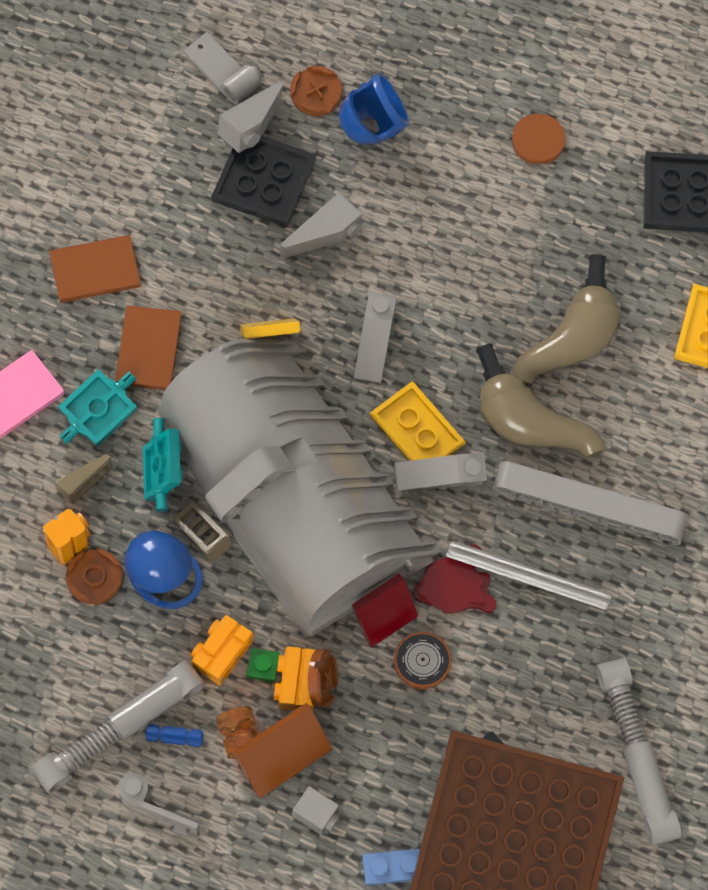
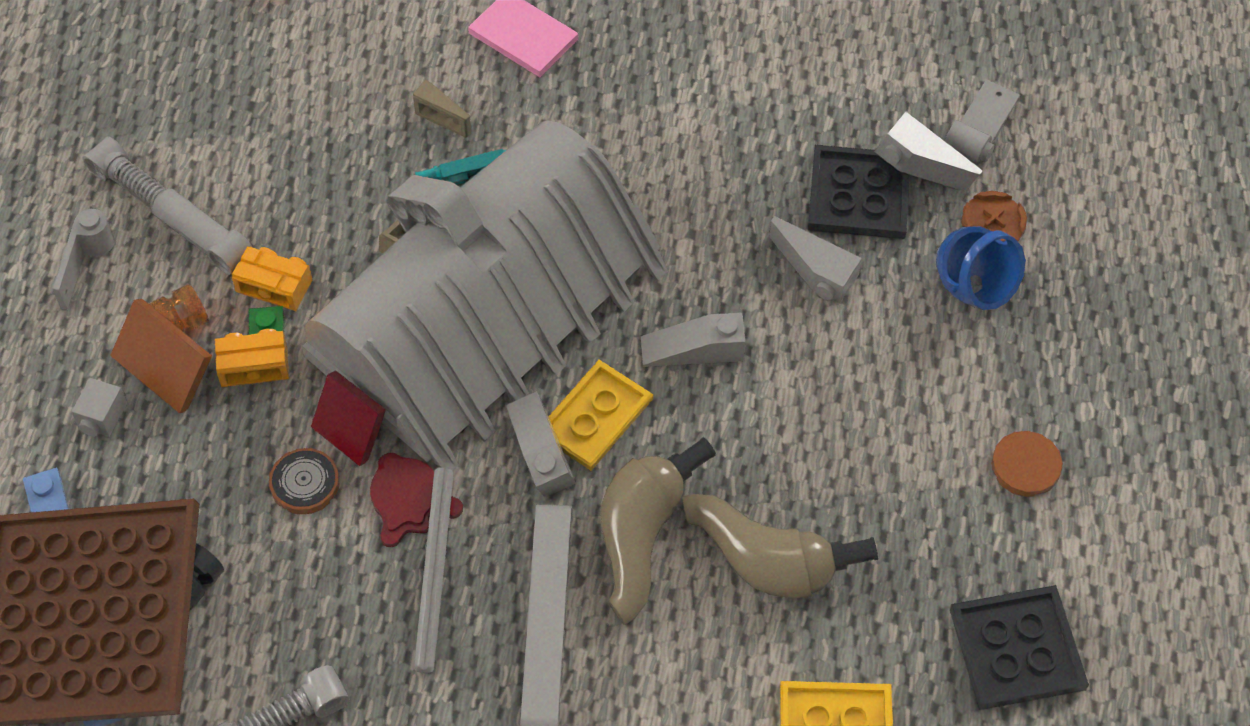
camera: 80 degrees right, 10 degrees down
(67, 535) = (364, 101): light orange brick -> none
(86, 577) = (335, 158): dark orange tile -> none
(95, 268) = (693, 67): dark orange tile -> none
(97, 408) = (526, 101): teal plate -> none
(149, 346) = (621, 132): dark orange tile -> none
(160, 564) = (352, 185): blue piece -> none
(174, 735) = (168, 259): blue axle -> none
(269, 328) = (659, 221): yellow tile -> none
(322, 677) = (251, 372): dark orange tile -> none

